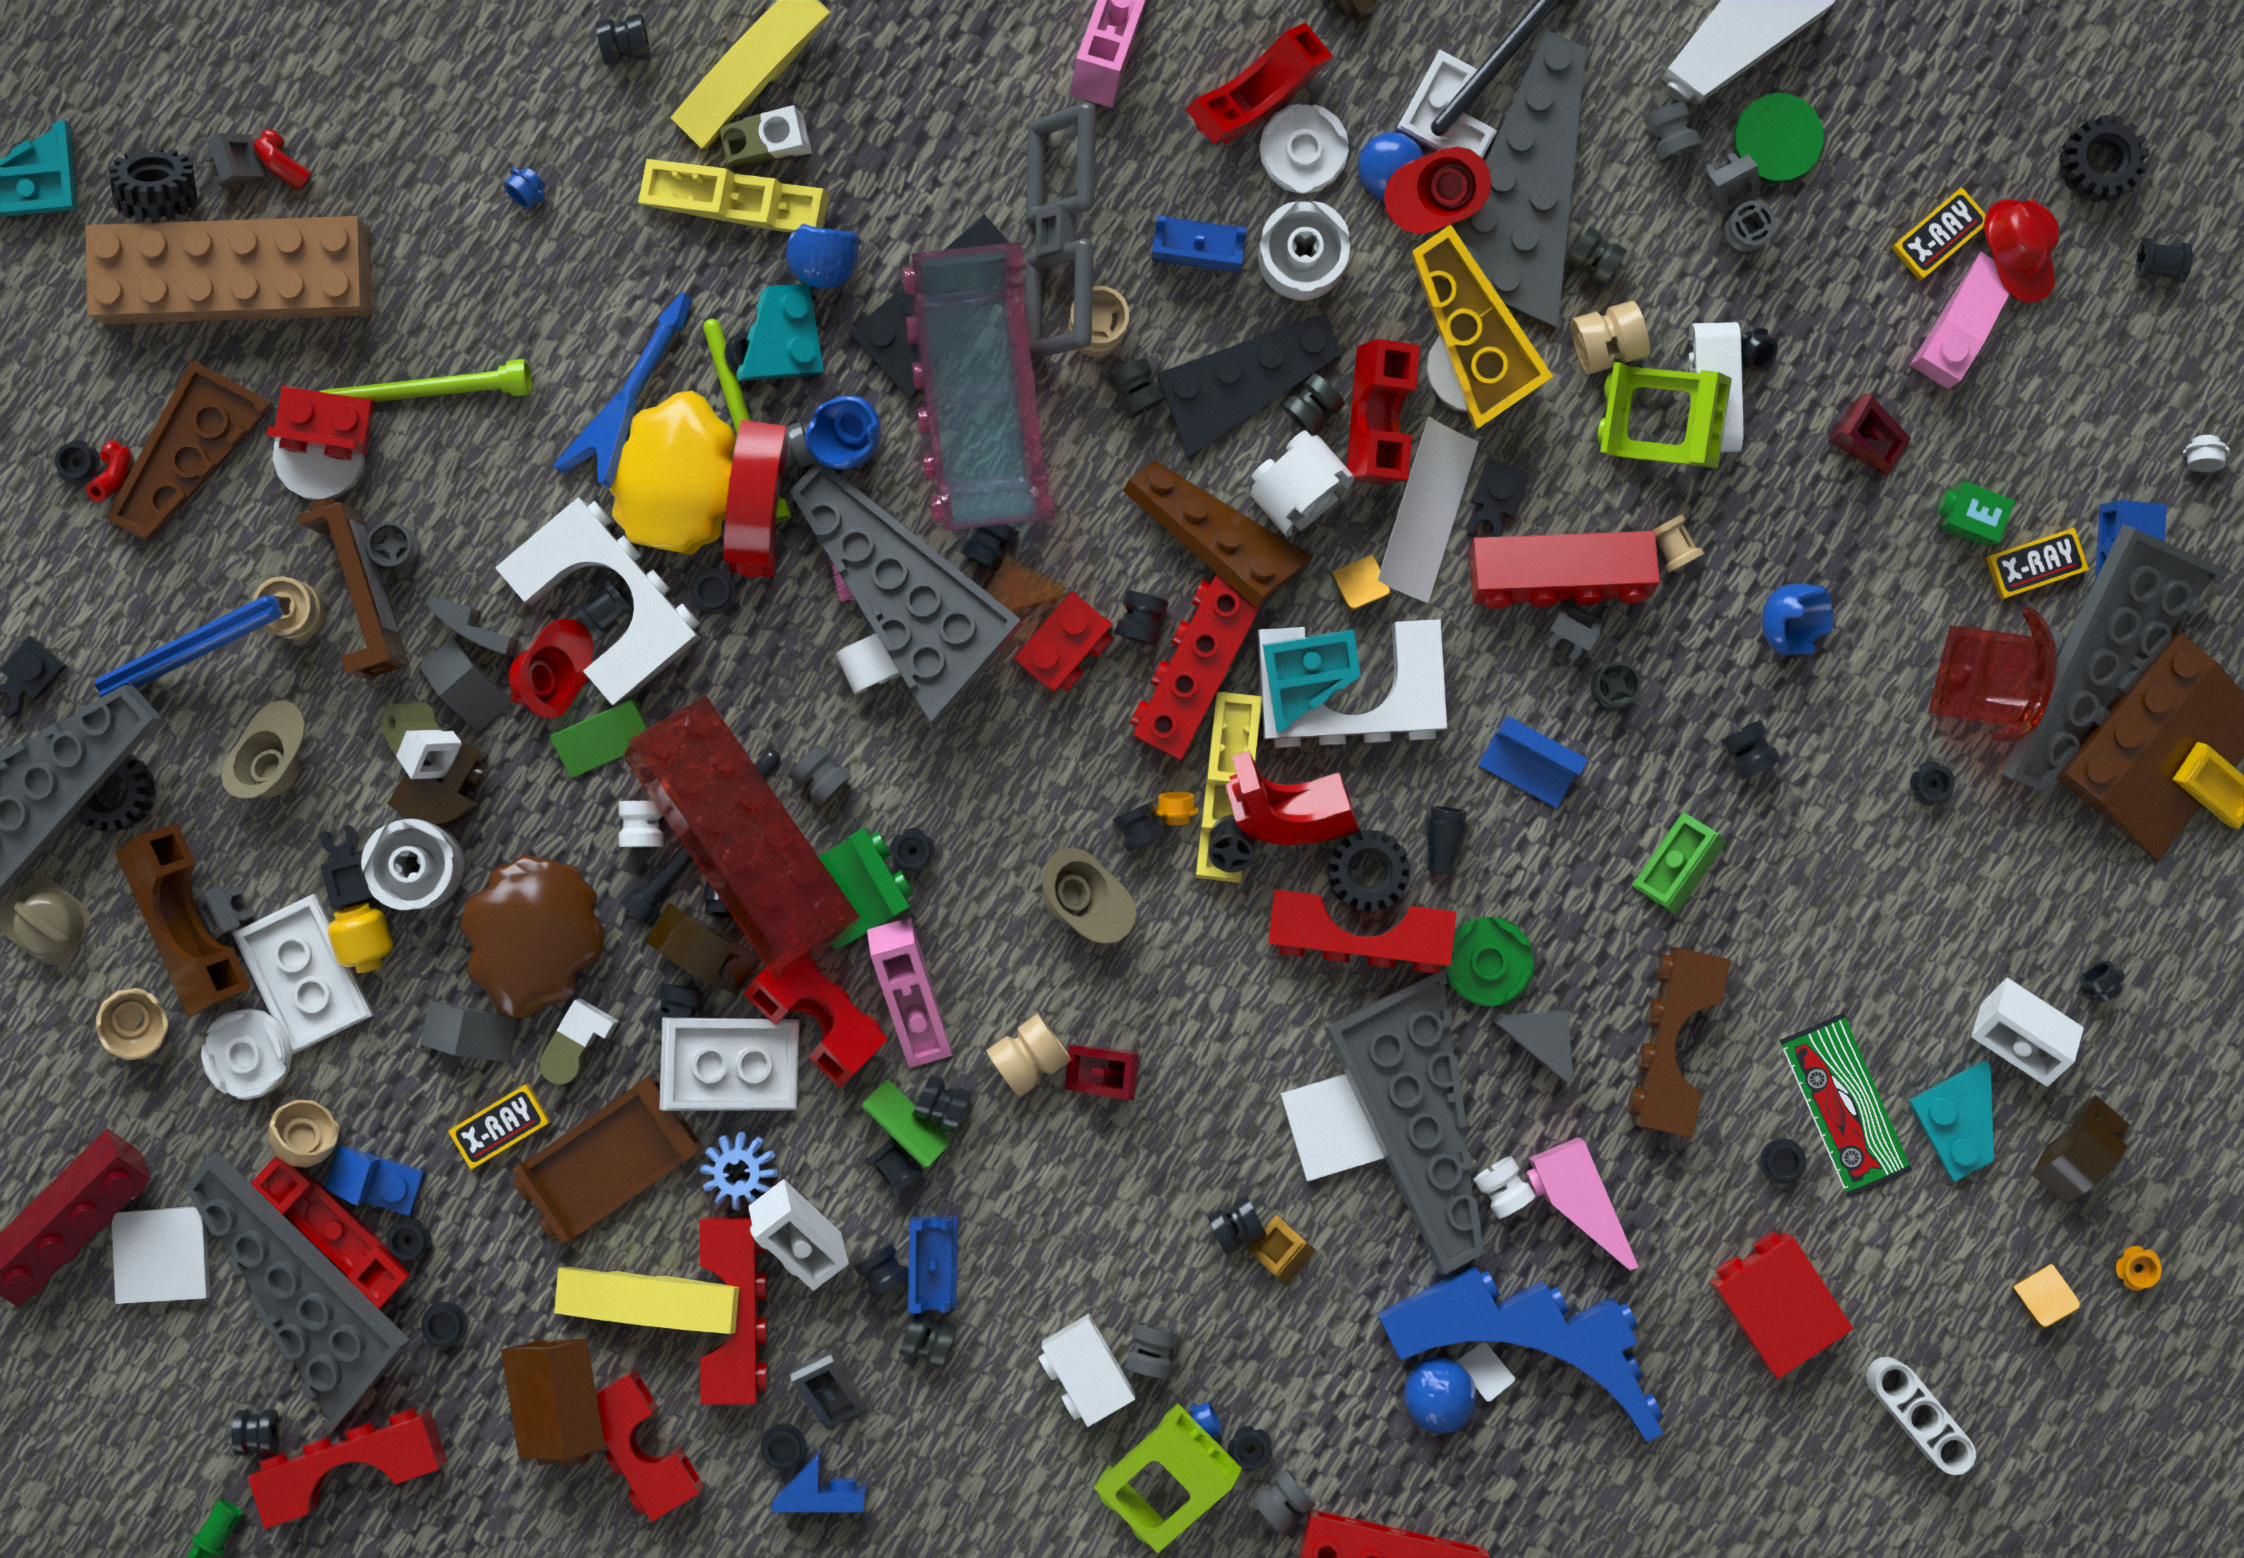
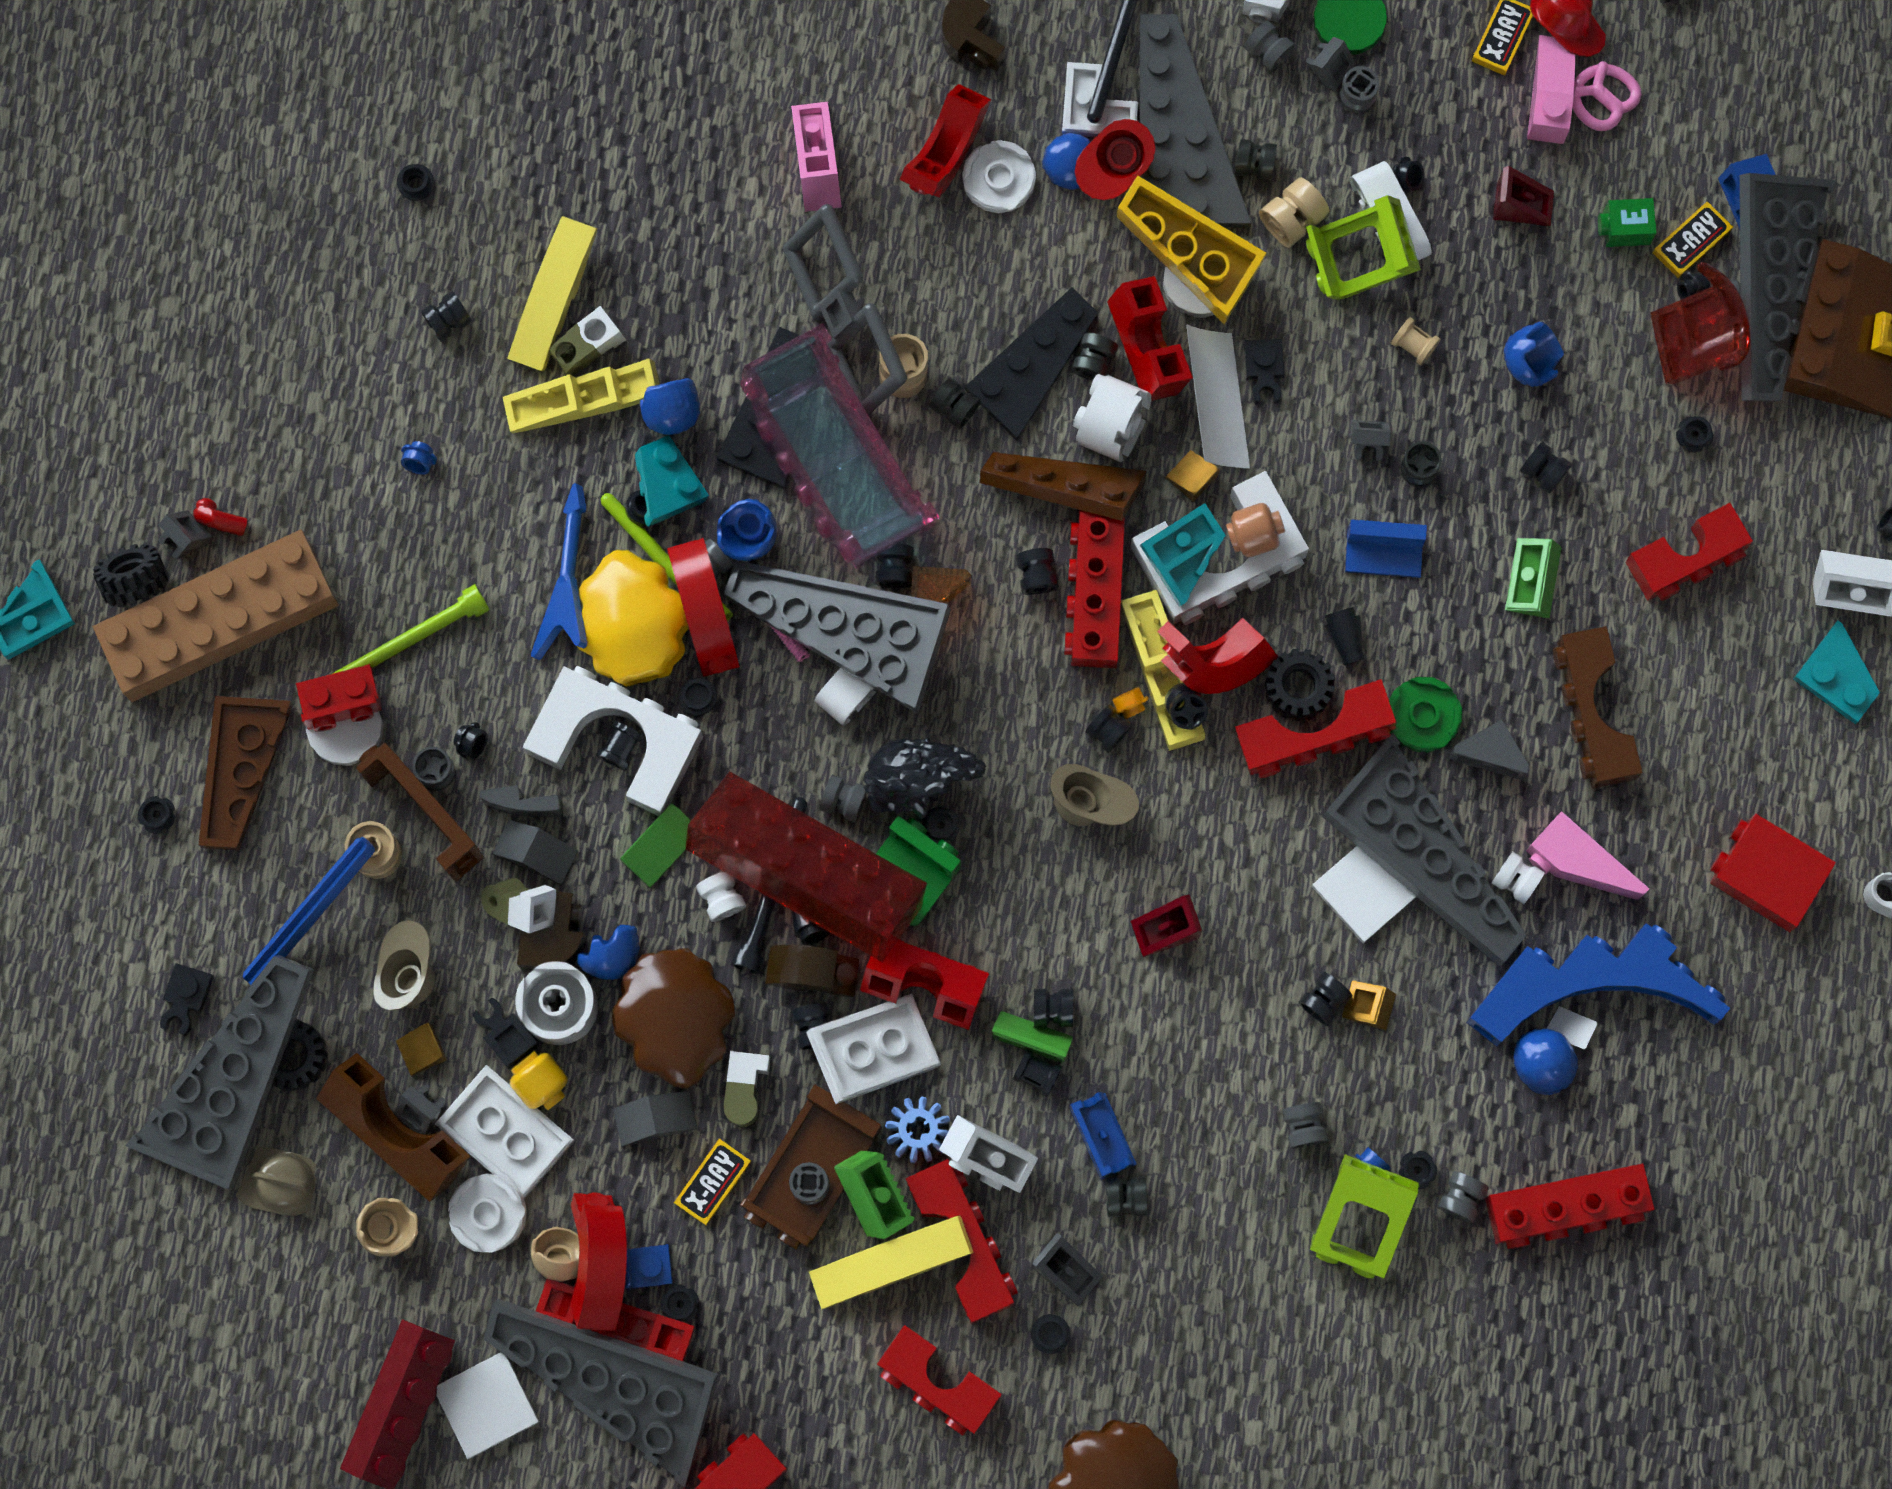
camera: 20 degrees left, 10 degrees down
(115, 475) = (191, 808): red arm -> none
(253, 845) = (421, 1049): none -> pearl gold slope
(337, 1164) = (602, 1261): none -> red arch
(441, 528) = (466, 737): none -> black plate
(444, 1324) = (737, 1358): black plate -> none
(495, 837) = (612, 957): none -> blue hair
(552, 669) = (600, 807): red piece -> none
(553, 1401) = (853, 1371): reddish brown brick -> none
(605, 1174) = (809, 1189): none -> dark grey wheel
(659, 1222) = (874, 1194): none -> bright green brick
(807, 1494) = (1086, 1360): blue slope -> none
(881, 1270) = (1065, 1157): black wheel -> none
(906, 788) = (912, 771): none -> black hair
(908, 992) = (988, 933): bright pink slope -> none
(1028, 1055) = (1105, 935): tan wheel -> none
(1064, 643) = (986, 617): red bracket -> none
(1087, 1371) = (1262, 1162): white brick -> none
(1198, 244) = (953, 279): blue hinge -> none
(1304, 224) = (1038, 267): white brick -> none
(1395, 685) = (1255, 530): none -> nougat head
(1563, 568) = (1340, 394): brick -> none
(1782, 1160) = (1720, 764): black plate -> none
(1845, 1105) = (1747, 703): sticker -> none
(1902, 915) = (1661, 569): none -> red arch
(2009, 617) = (1691, 284): none -> black plate
(2019, 355) = (1603, 95): none -> bright pink piece
(2206, 454) = (1778, 102): white plate -> none

